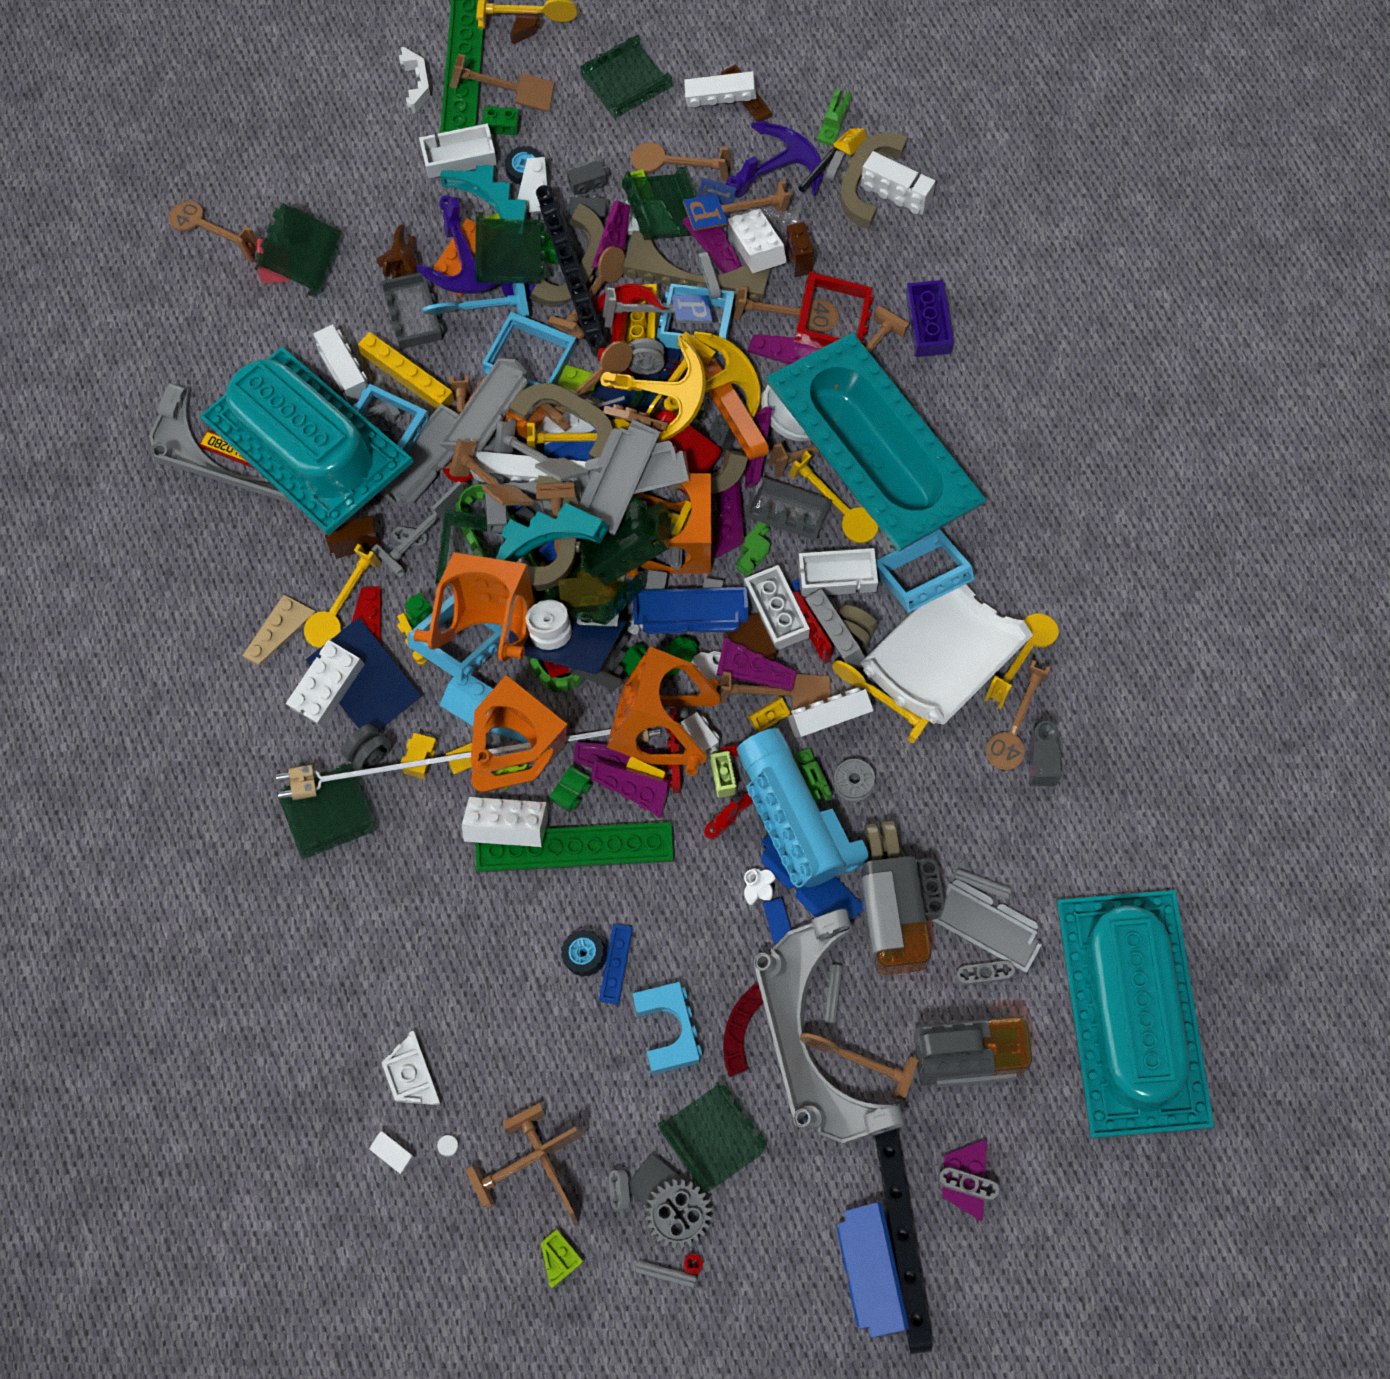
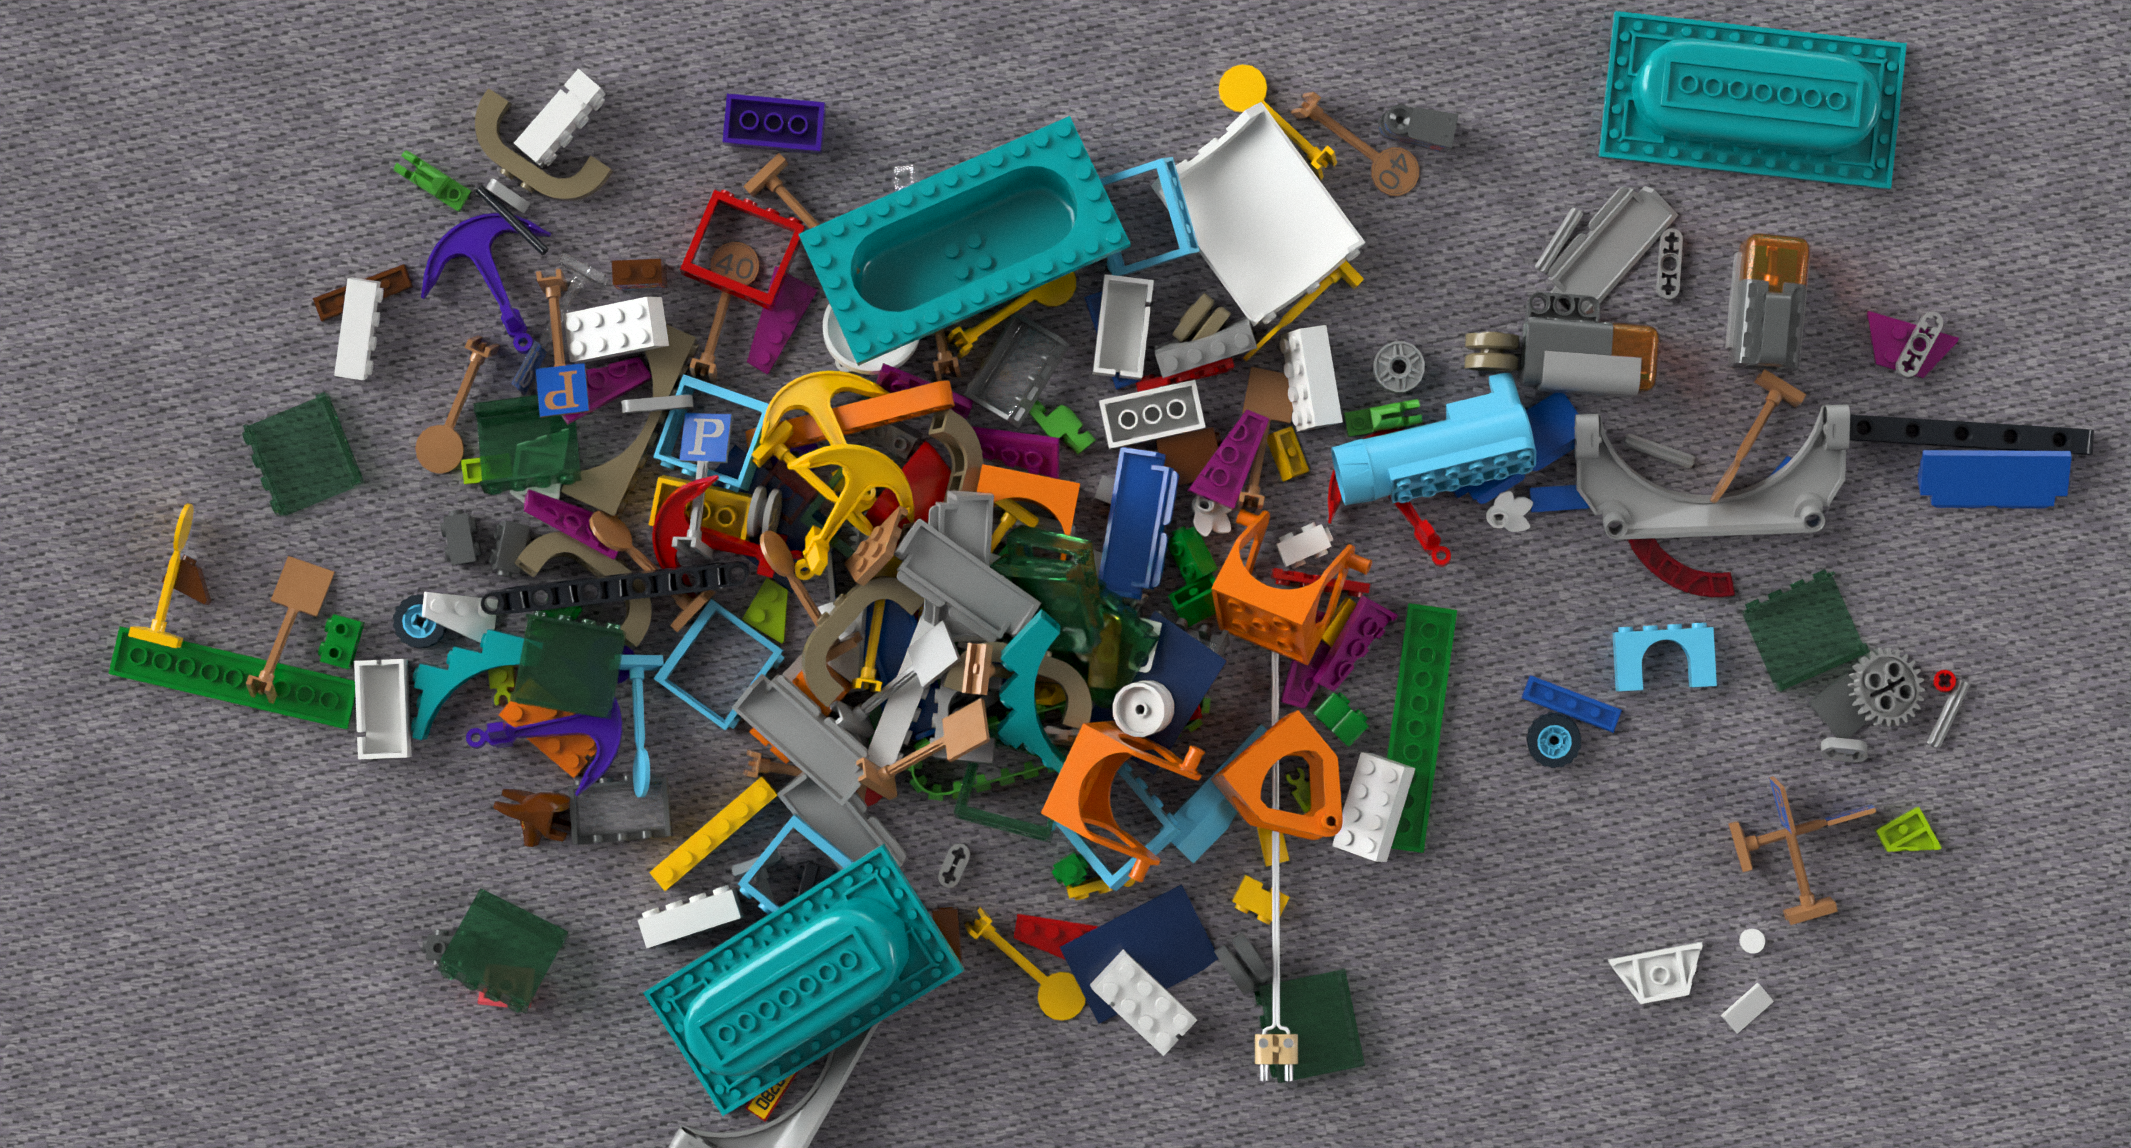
camera: 80 degrees left, 20 degrees up
(189, 215) = (406, 1094): medium nougat piece -> none
(282, 623) = (1044, 1048): tan wing -> none
(418, 96) = (216, 750): white slope -> none
(446, 502) = (982, 893): light grey piece -> none
(723, 774) = (1361, 526): yellowish green brick -> none
(851, 140) = (472, 165): yellow slope -> none

